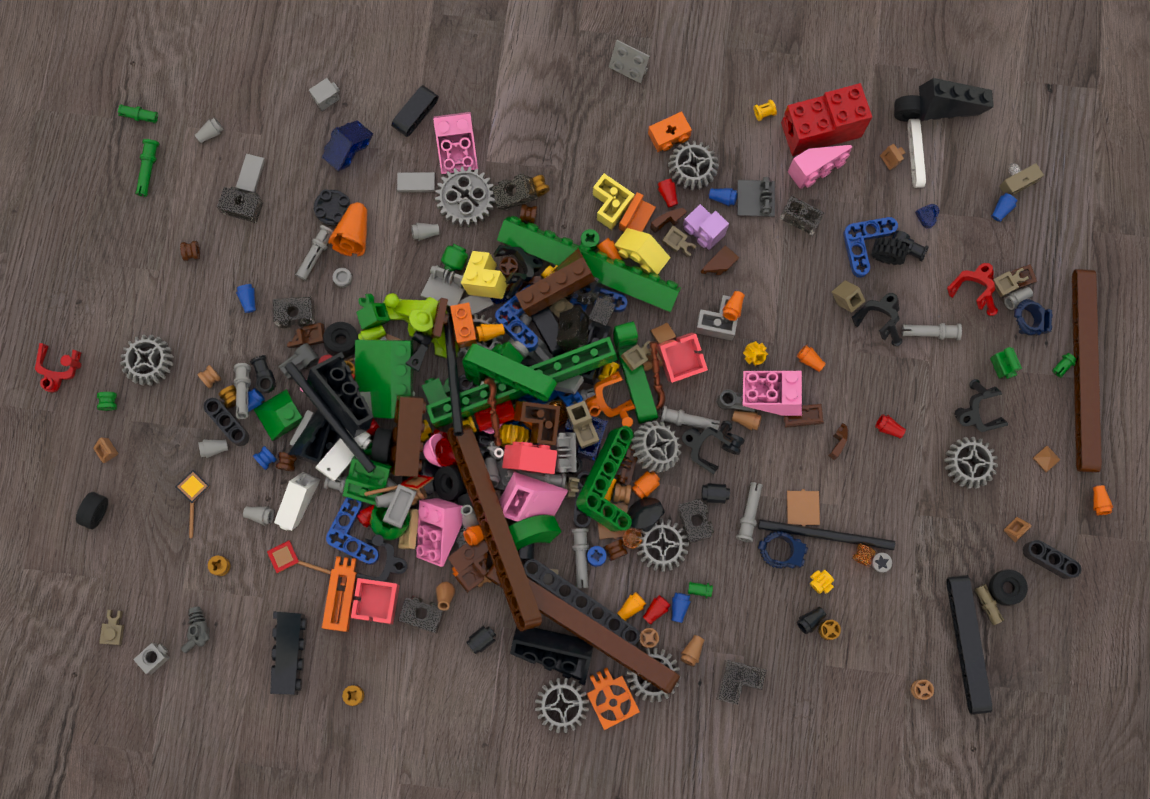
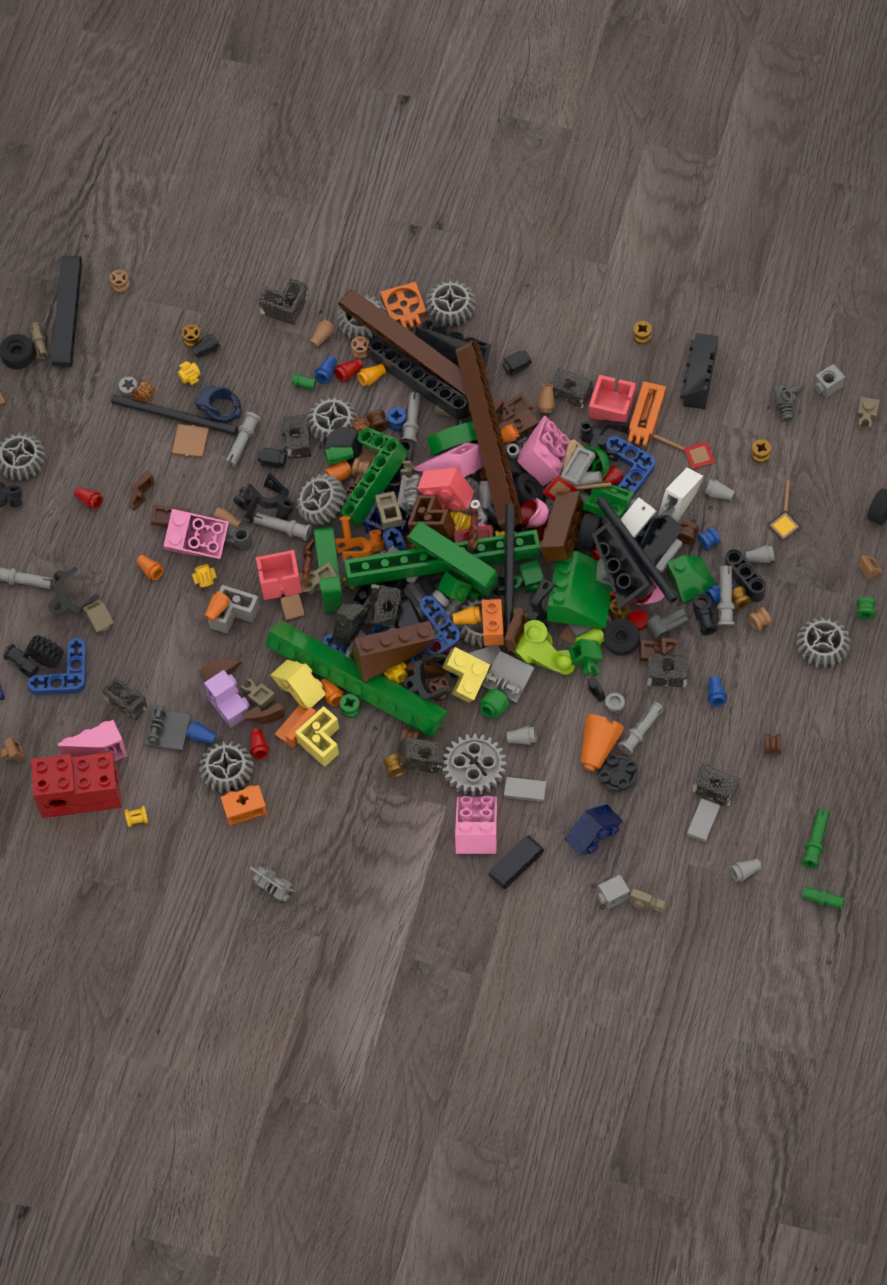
camera: 165 degrees left, 15 degrees down
(297, 89) = (643, 900): none -> dark tan plate
(362, 286) = (595, 688): none -> black tile
(647, 496) = (338, 454): none -> green cone

